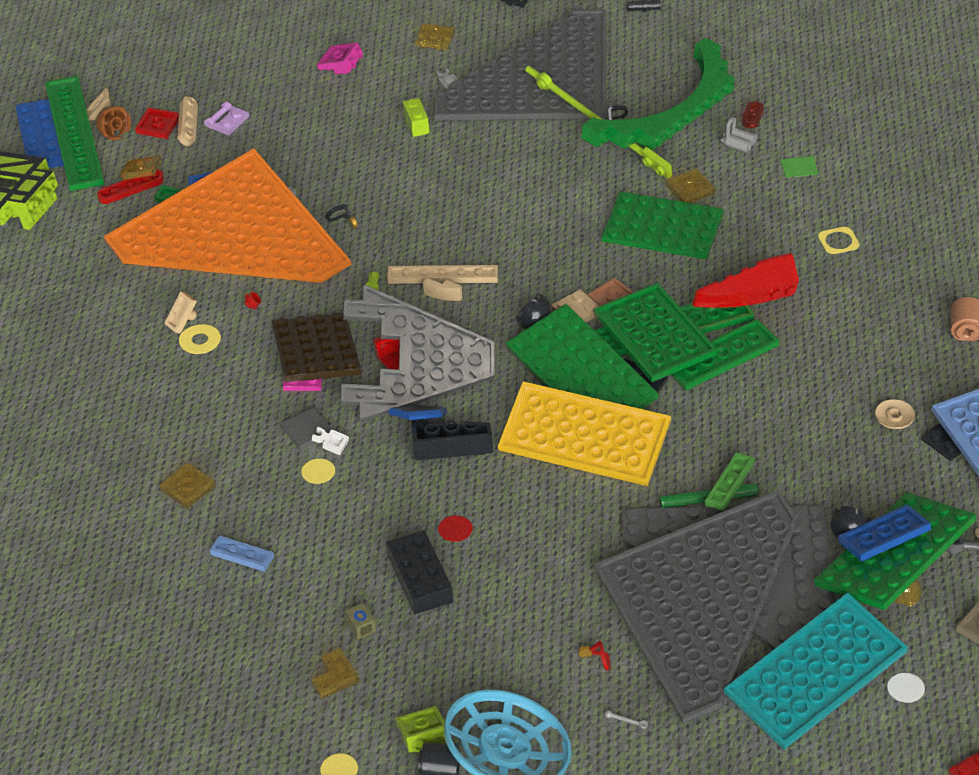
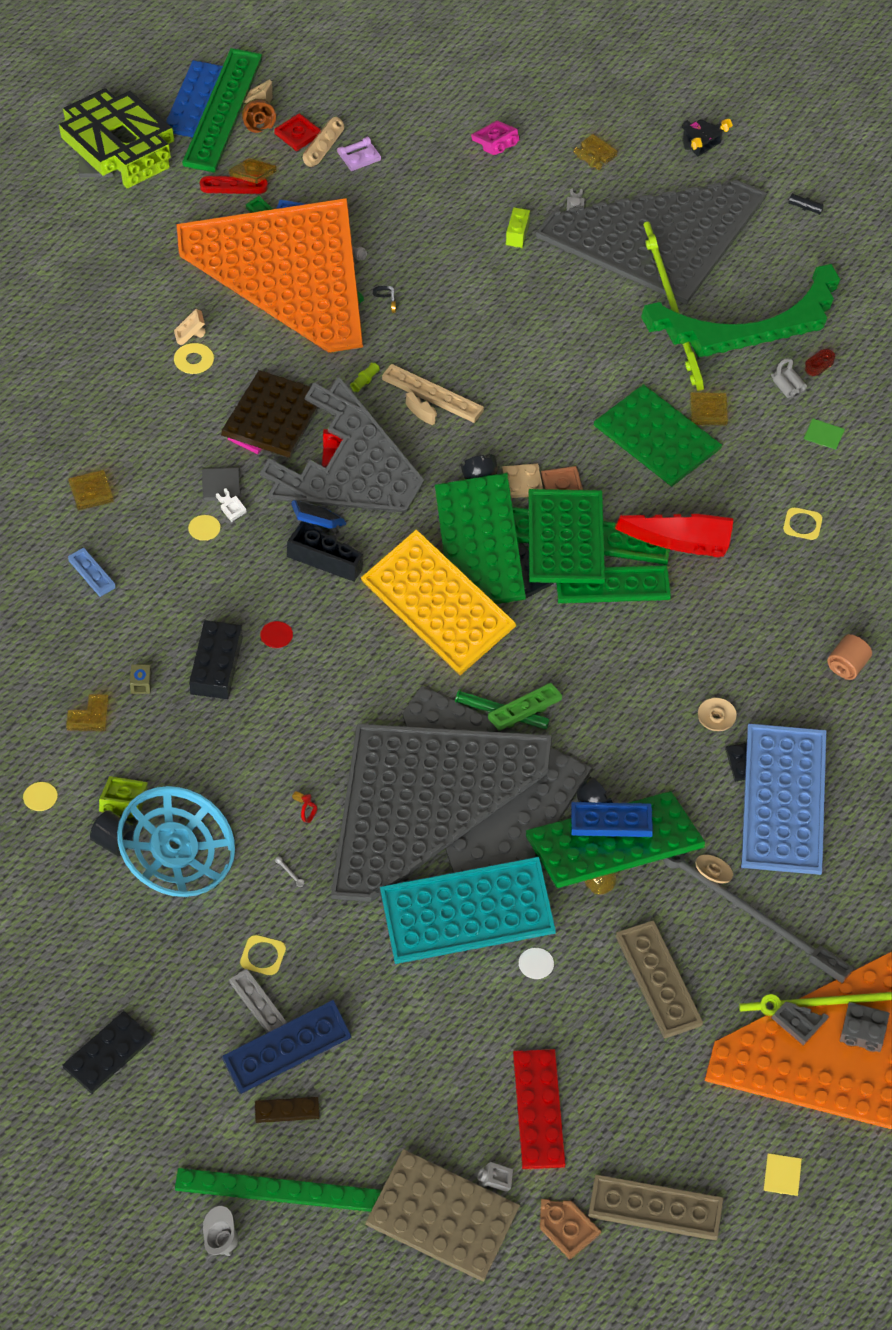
camera: 25 degrees right, 10 degrees up
(252, 300) = (258, 342): red plate -> none
(618, 107) = (698, 300): black piece -> none

